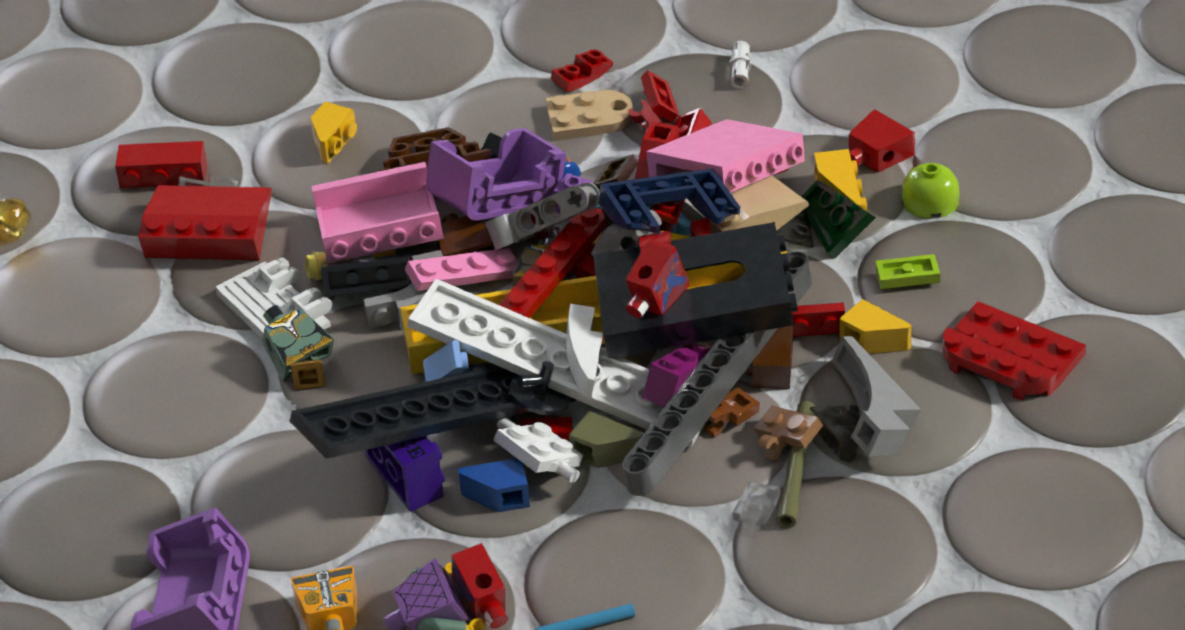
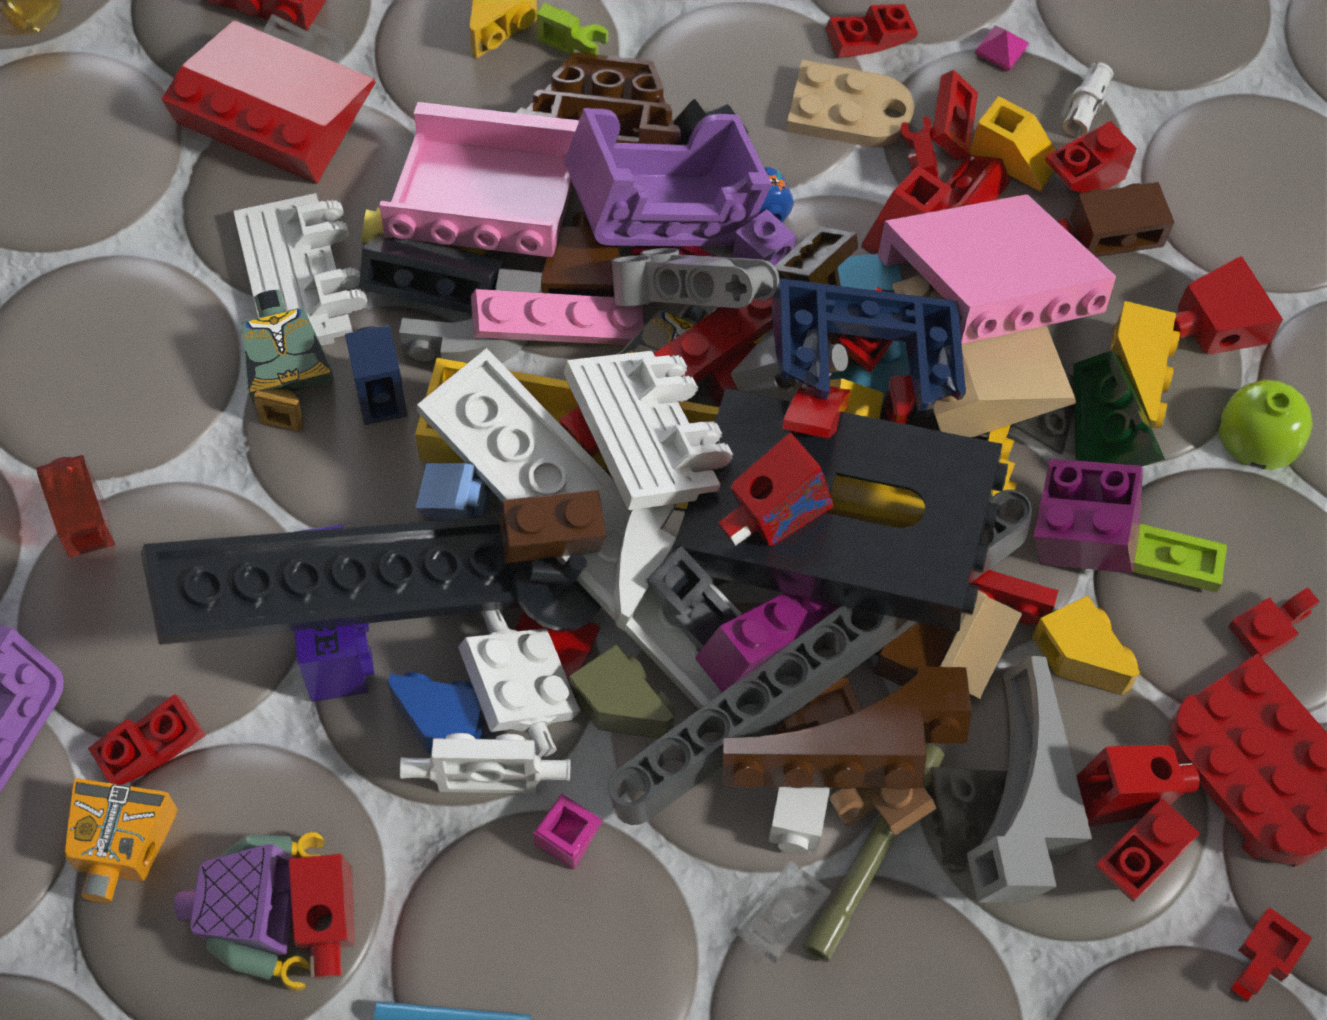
camera: 15 degrees right, 20 degrees up
(208, 454) = (76, 505): none -> clear red slope
(324, 555) = (145, 745): none -> red slope
(364, 332) = (376, 374): none -> dark blue brick
(380, 129) = (562, 31): none -> lime plate
(523, 351) = (552, 526): none -> reddish brown brick
(542, 491) = (485, 765): none -> white plate
(552, 285) = (642, 429): none -> white hinge
(606, 514) = (566, 831): none -> dark pink slope
(618, 361) = (688, 597): none -> black slope
(671, 54) = (1001, 48): none -> dark pink slope
(708, 93) = (1018, 139): none -> yellow slope
(742, 458) = (799, 818): none -> white brick
(760, 90) = (1094, 159): none -> red slope
(766, 403) = (862, 750): none -> reddish brown arch
(794, 113) = (1122, 219): none -> reddish brown brick
(808, 346) = (982, 641): none -> tan panel
(845, 263) = (1089, 515): none -> magenta slope
(933, 377) = (1130, 781): none -> red torso
(958, 403) = (1147, 850): none -> red slope
(980, 287) = (1270, 628): none -> red plate
(1050, 430) = (1273, 949): none -> red plate

